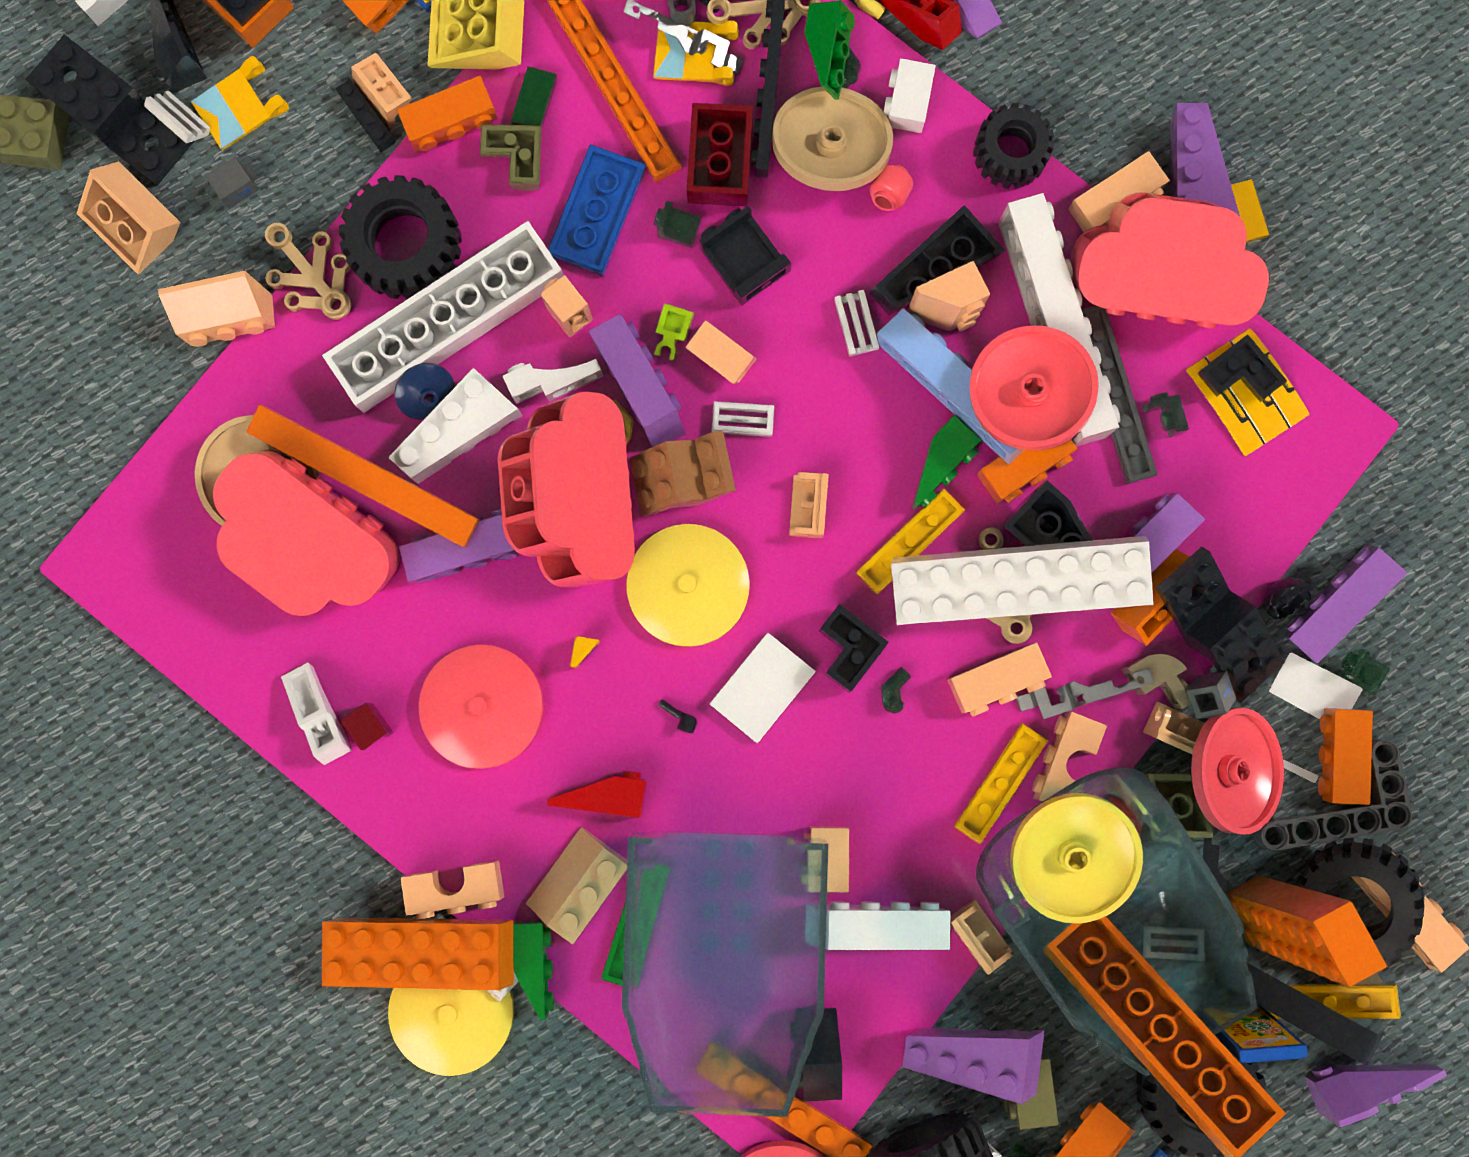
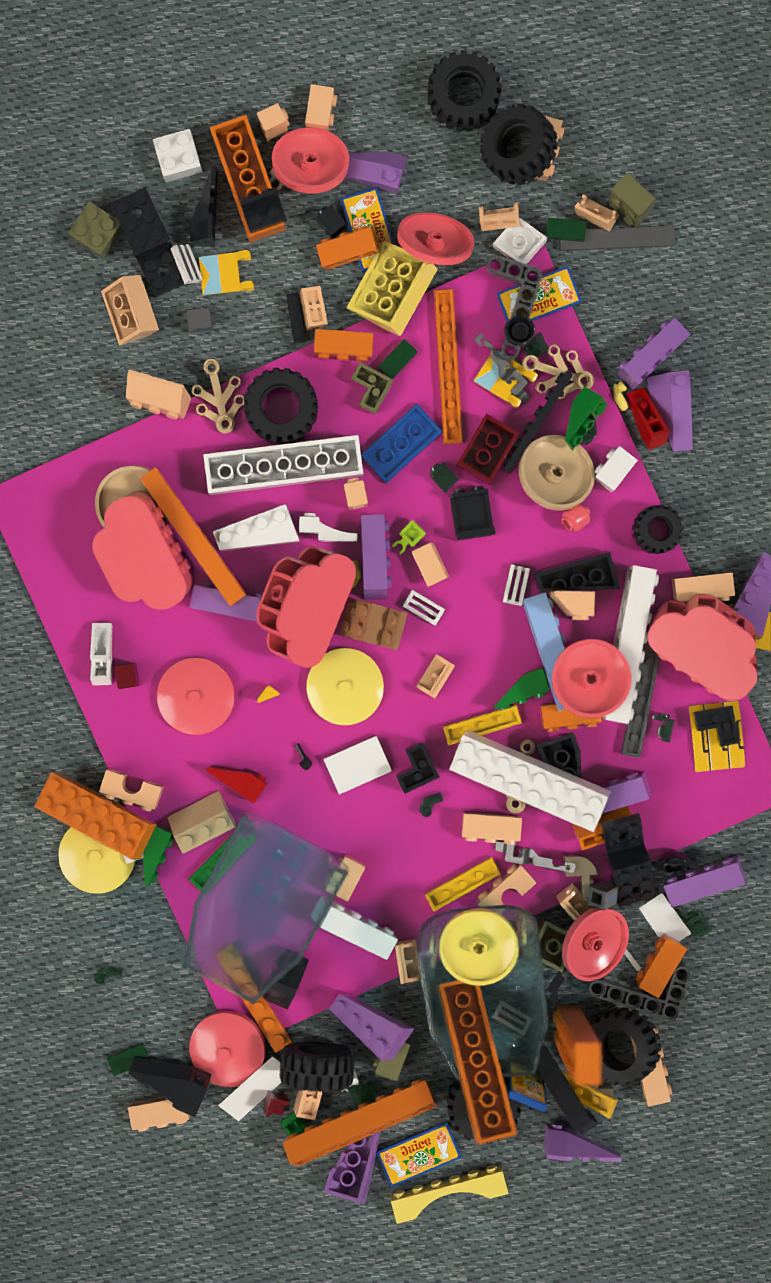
camera: 30 degrees right, 5 degrees up
(418, 382) = (251, 502): dark blue dish -> none

